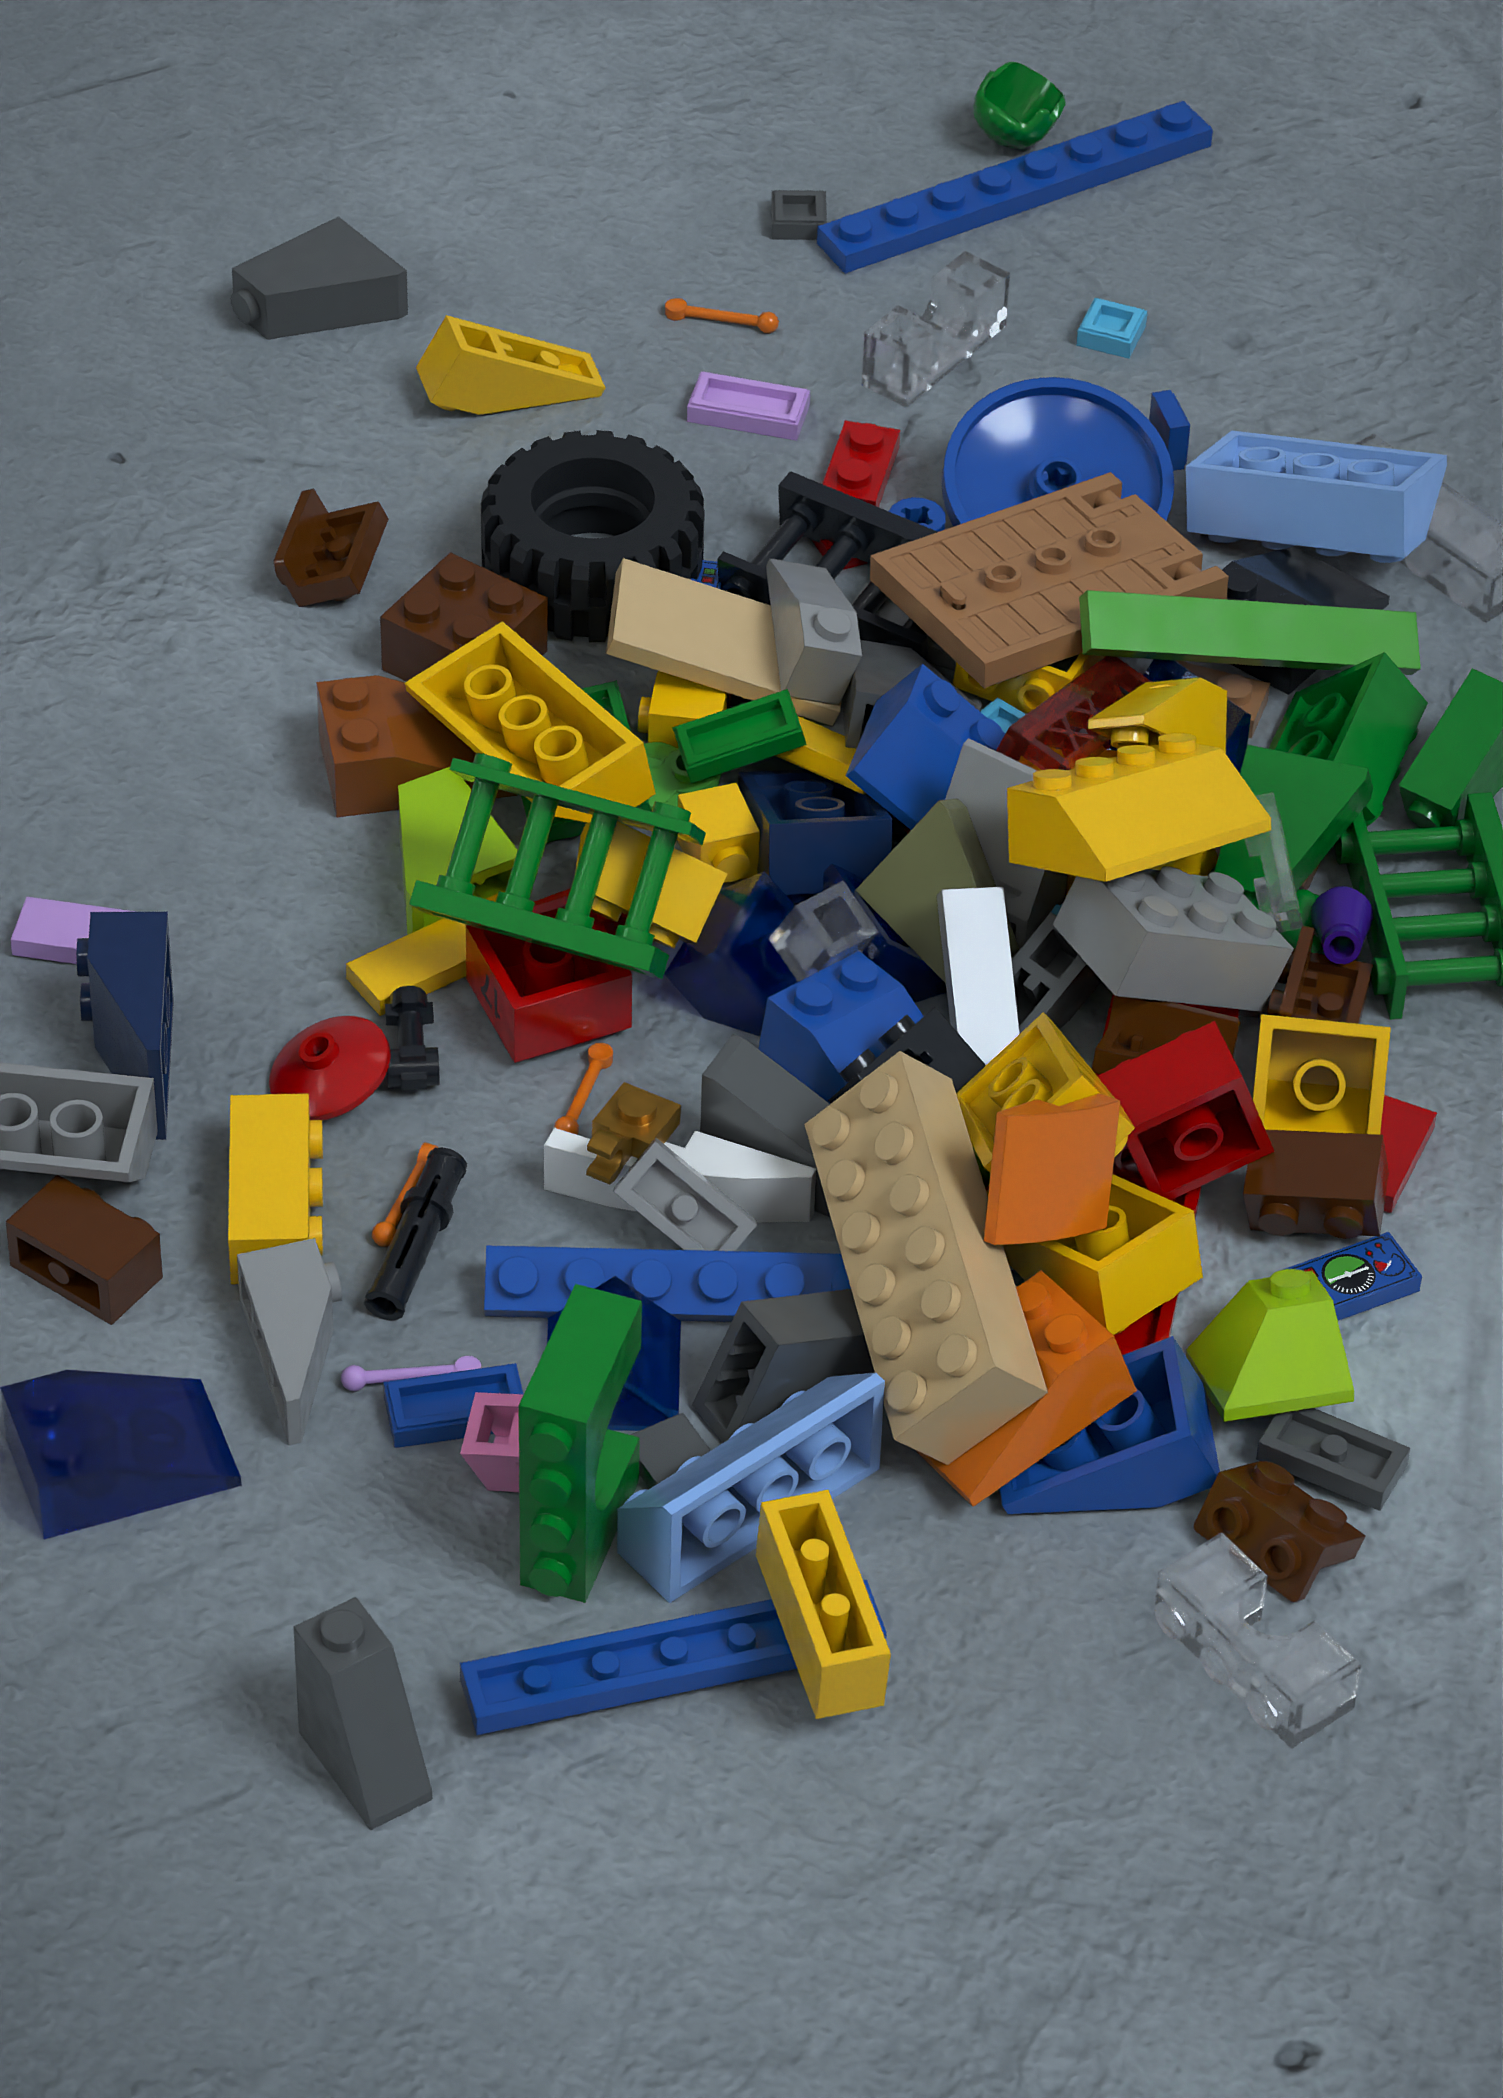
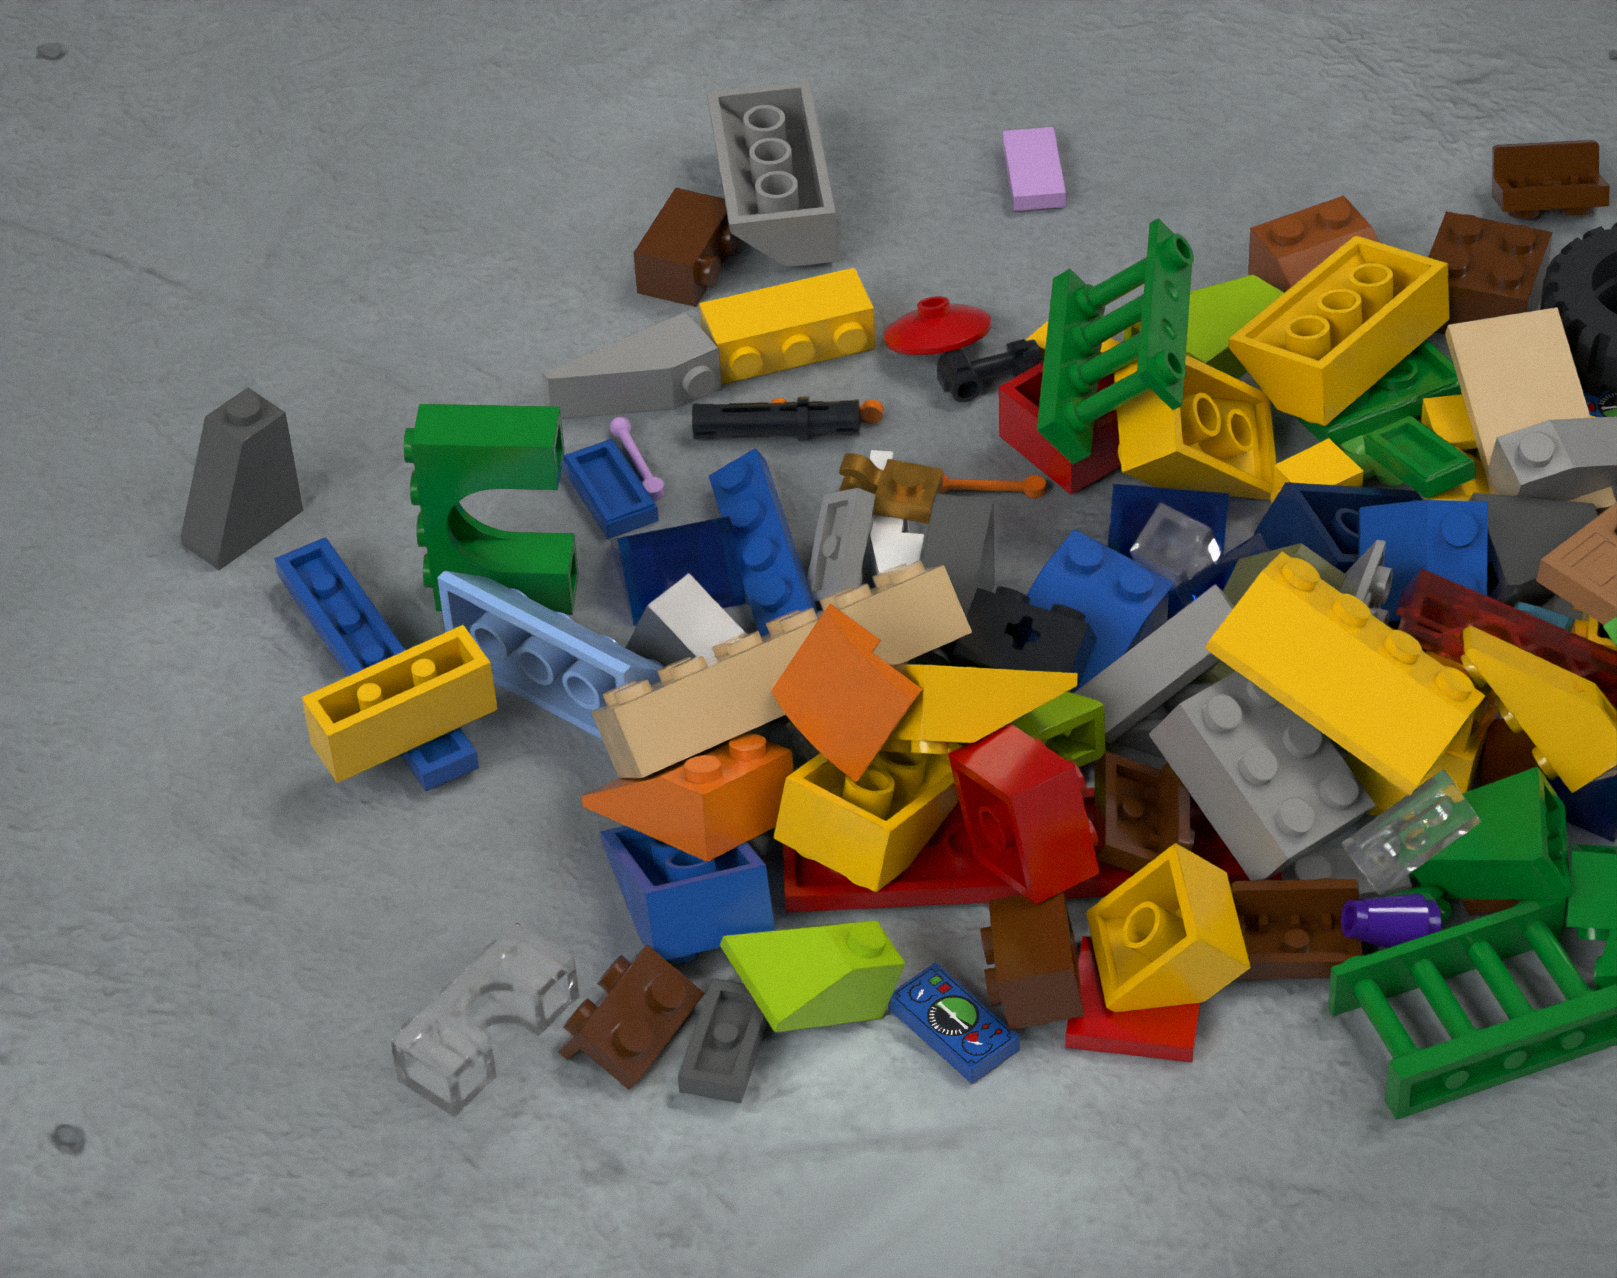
camera: 80 degrees right, 0 degrees up
(112, 1446) = (494, 309): clear blue slope -> none
(130, 997) = (917, 199): dark blue slope -> none
(495, 1462) = (561, 509): bright pink brick -> none
(667, 1447) = (600, 612): dark grey tile -> none

